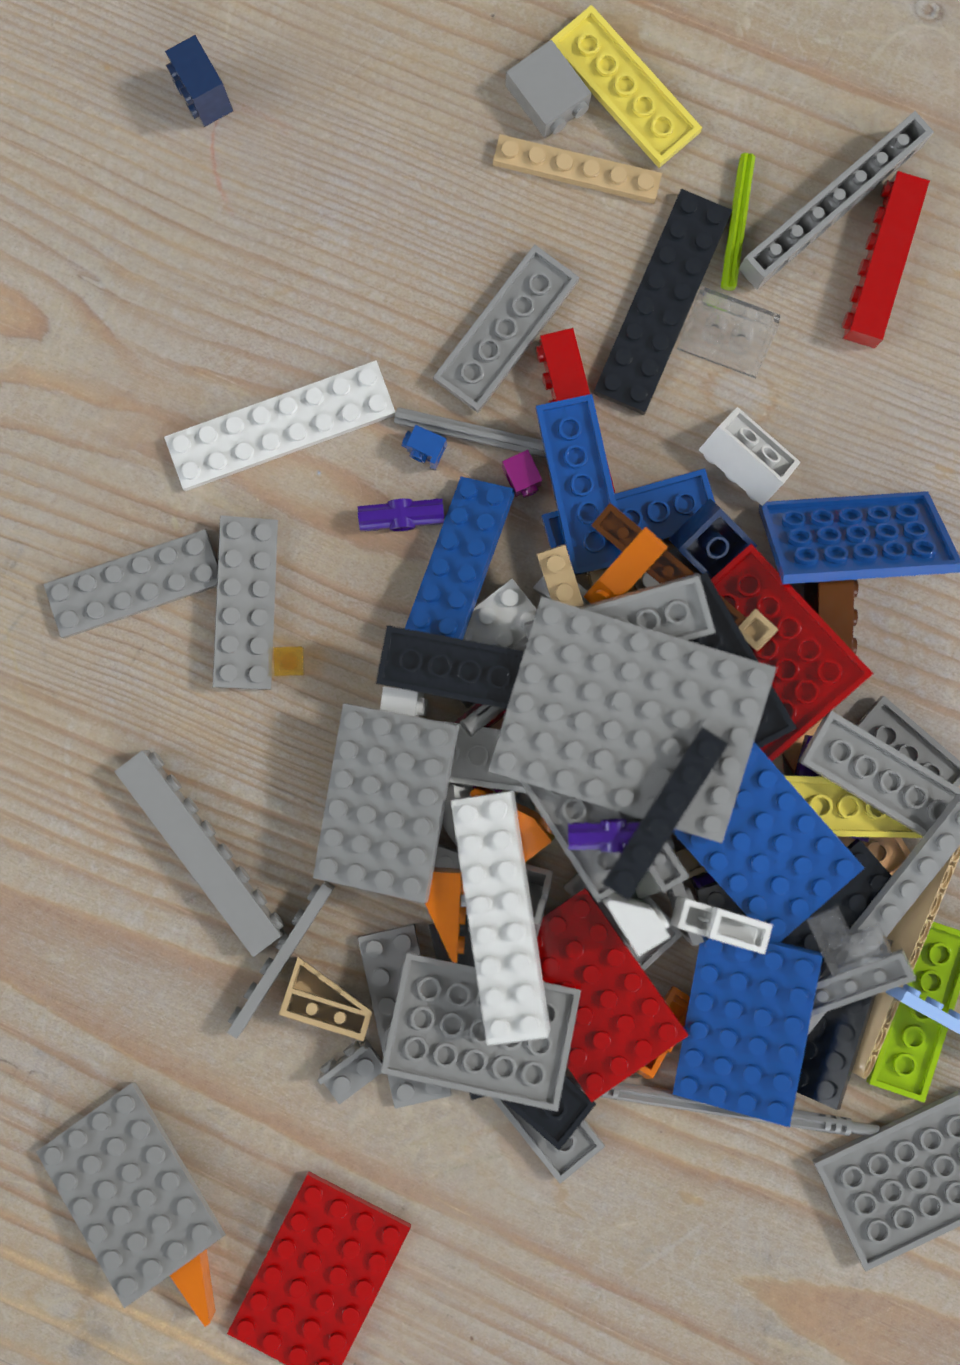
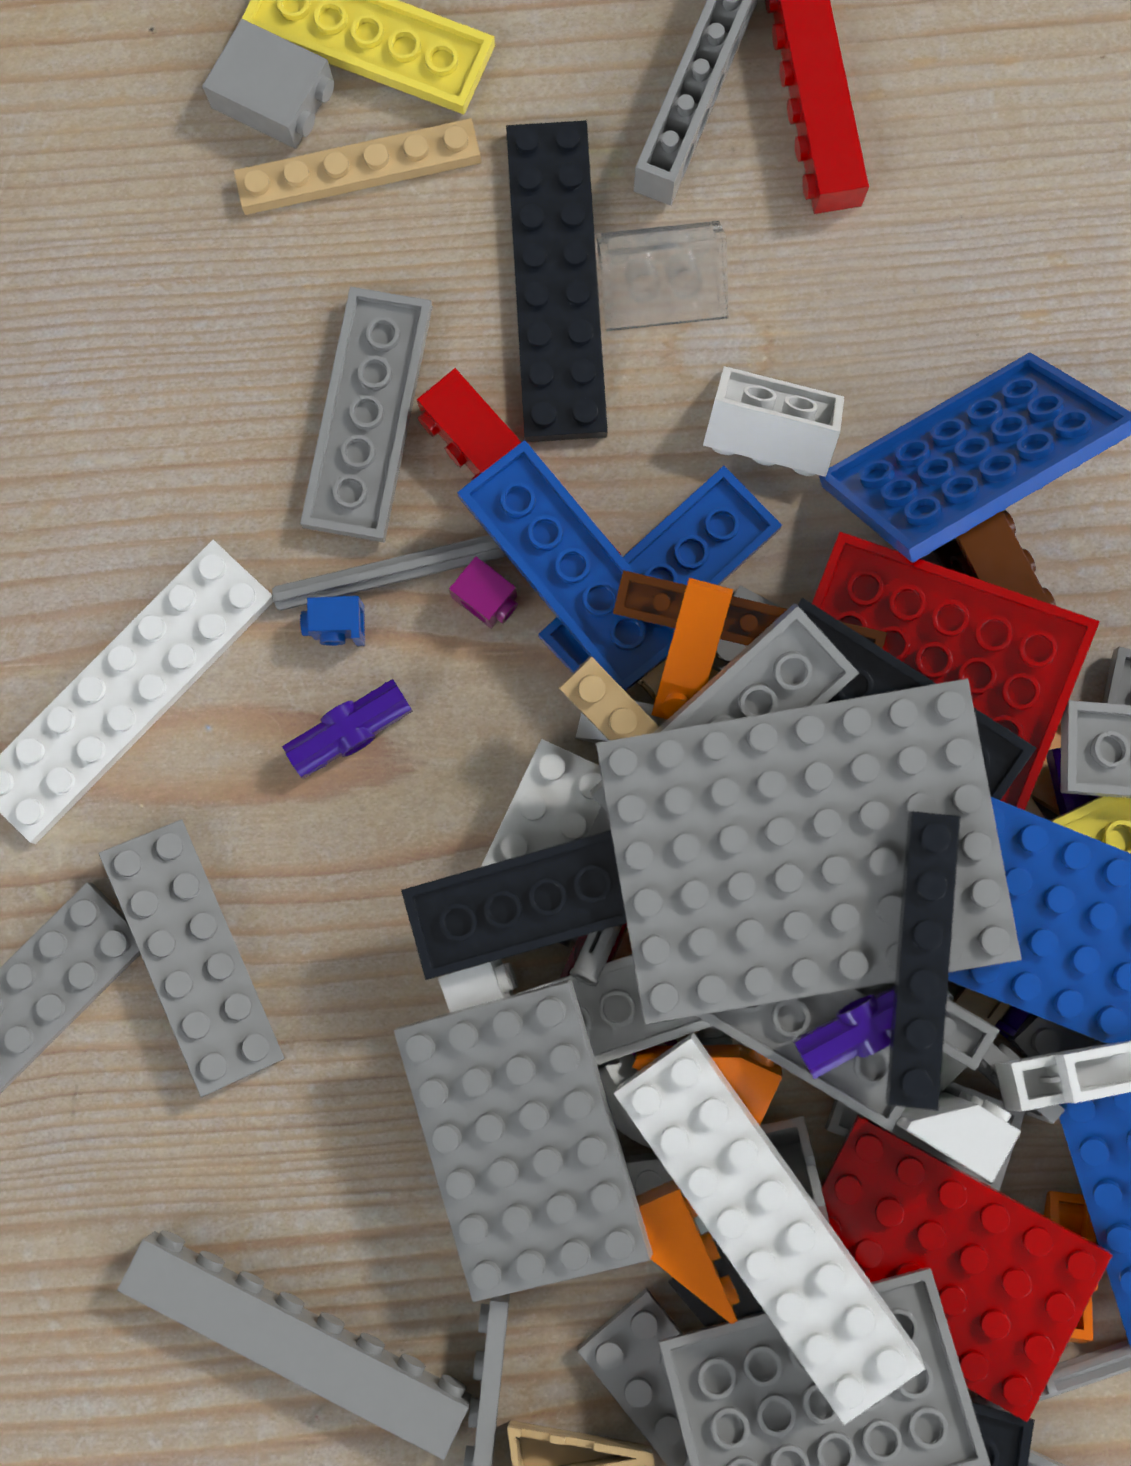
camera: 20 degrees left, 5 degrees down
(289, 661) = (290, 1006): clear yellow plate -> none
(461, 558) = (458, 749): blue plate -> none
(710, 539) = (782, 553): dark blue brick -> none
(738, 221) = (601, 132): lime axle -> none
(757, 630) = (911, 641): tan plate -> none

